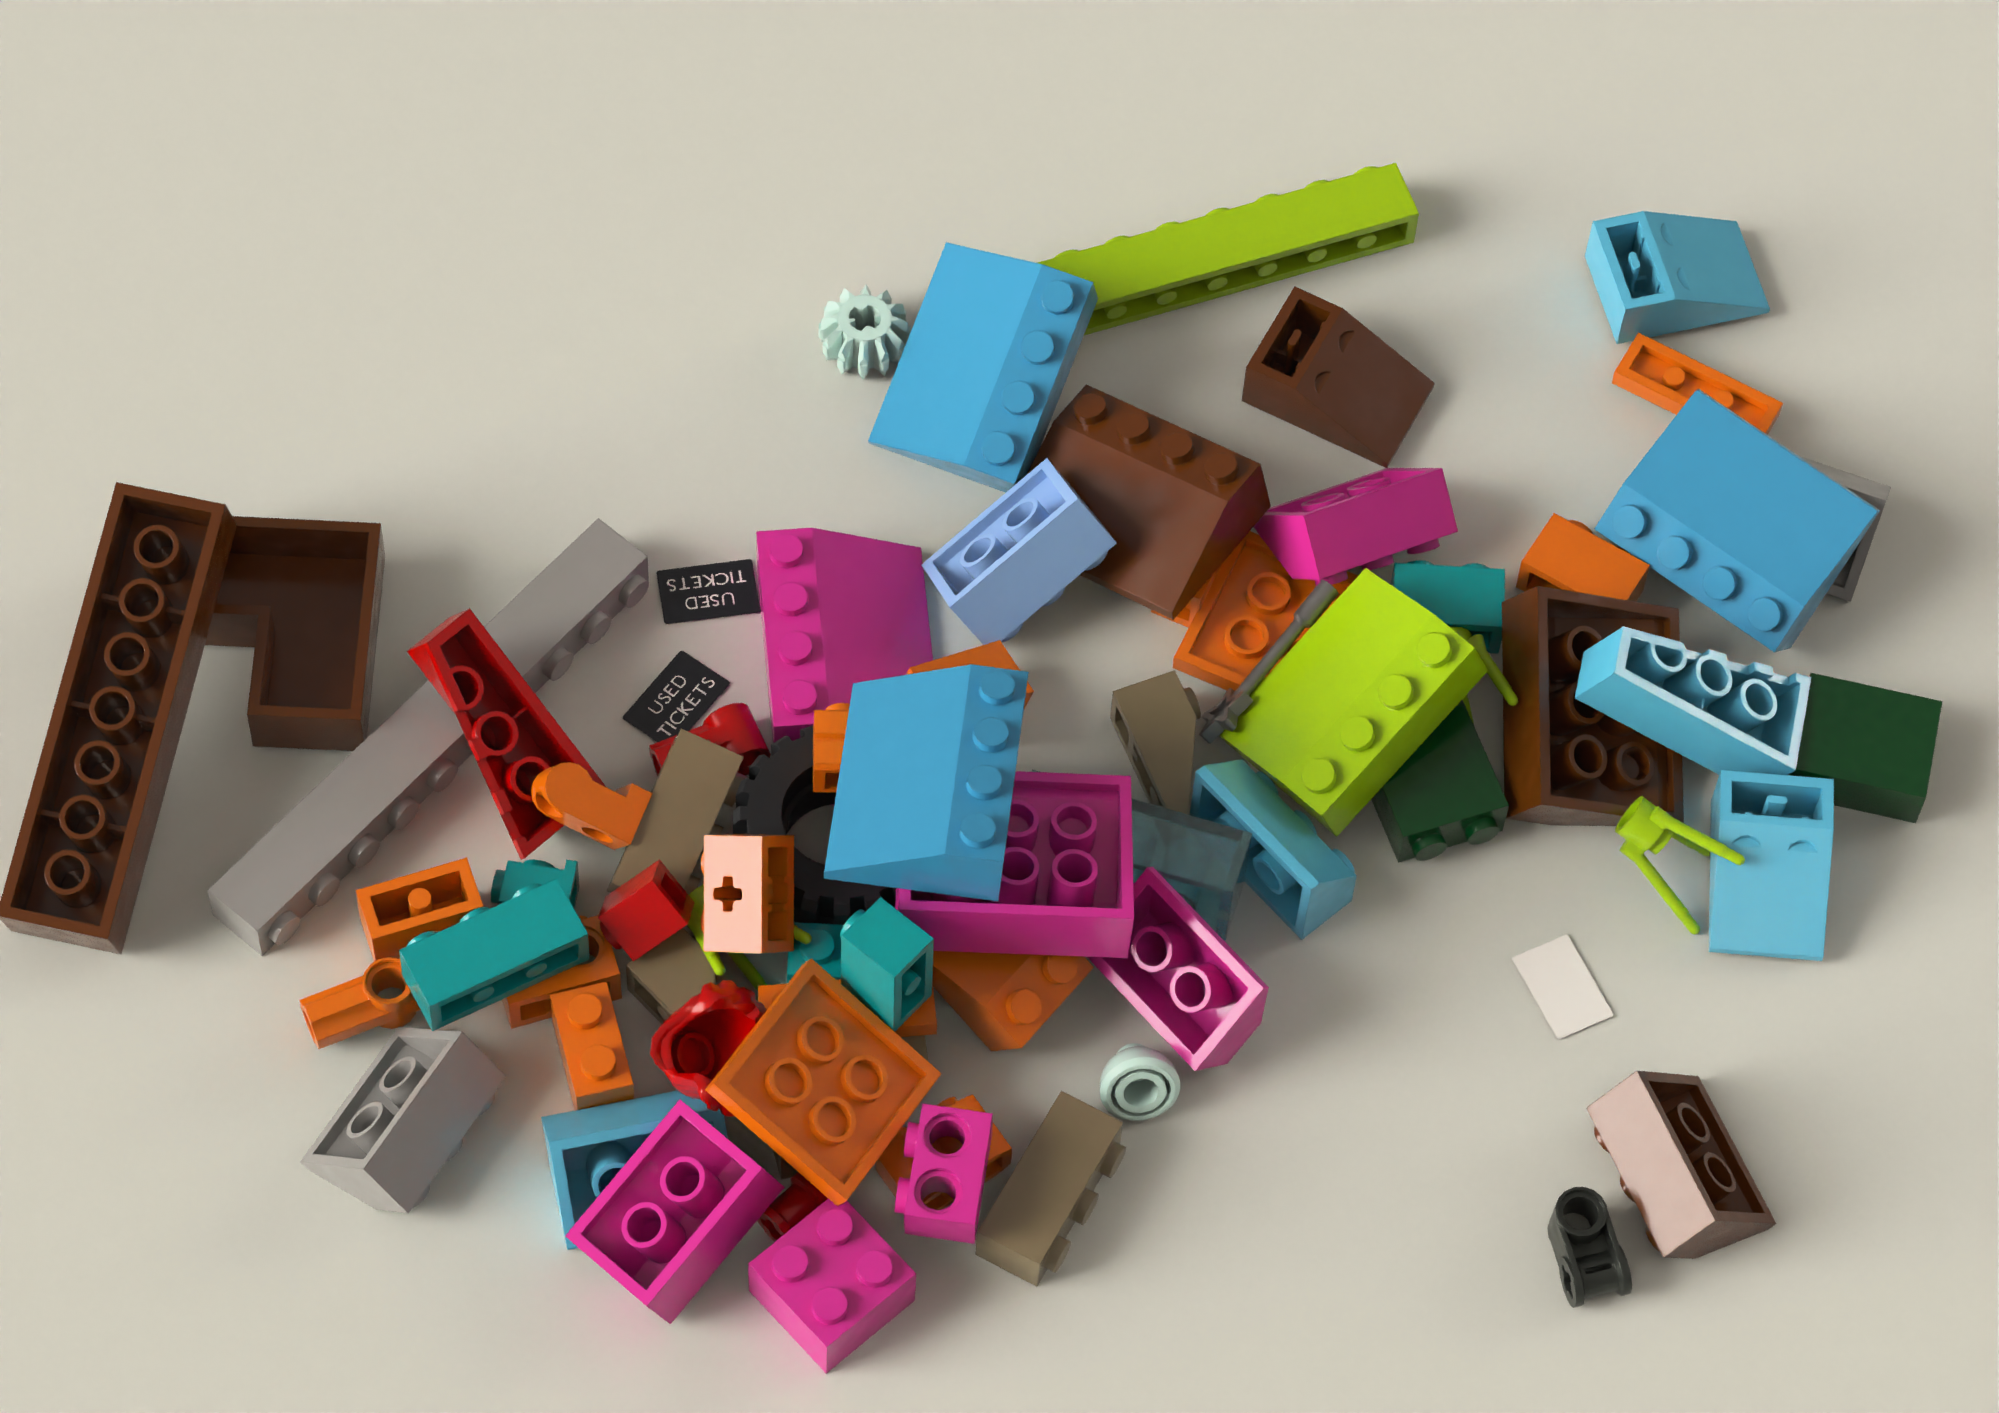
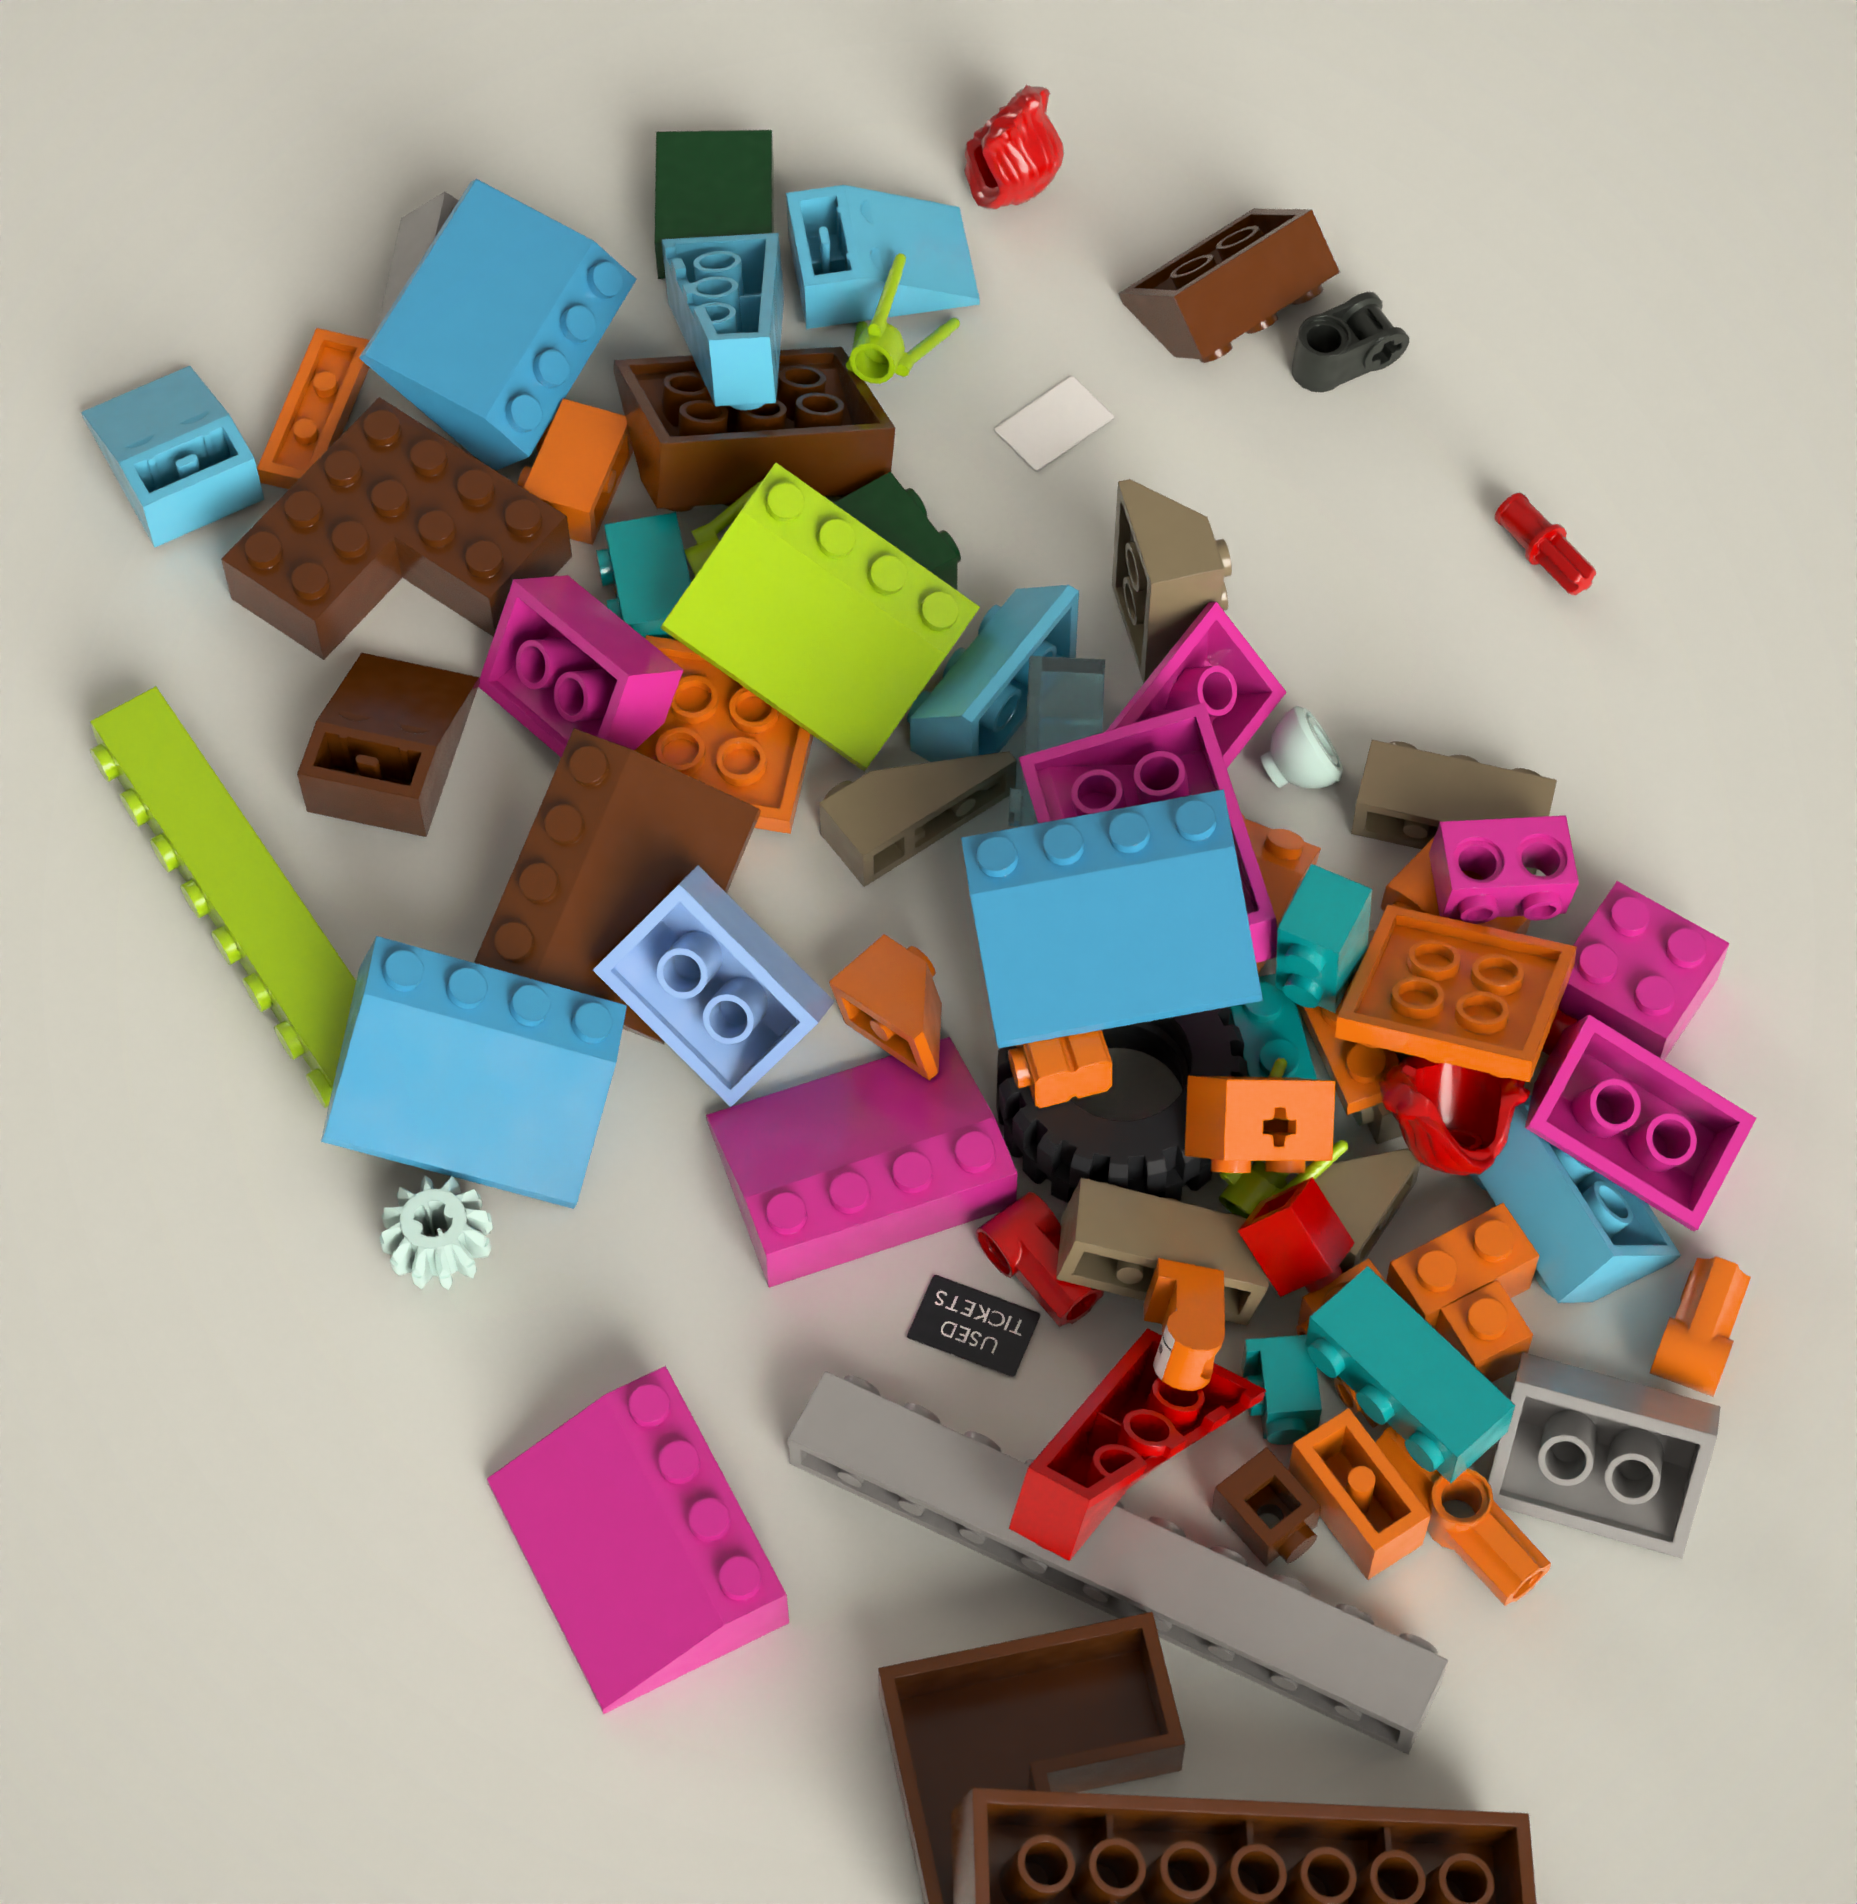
camera: 100 degrees left, 0 degrees up
(439, 837) = (1268, 1488): none -> reddish brown brick
(477, 1223) = (1698, 1337): none -> orange piece
(531, 1053) = (1486, 1330): none -> orange brick
(562, 424) = (638, 1542): none -> dark pink slope
(708, 591) = (820, 1327): black sticker -> none
(1235, 702) = (839, 749): flat silver piece -> none
(1315, 1358) = (1545, 544): none -> red axle
(1318, 976) = (1163, 570): none -> dark tan slope
(1565, 414) = (386, 509): none -> reddish brown piece
(1866, 1007) = (1014, 152): none -> hair

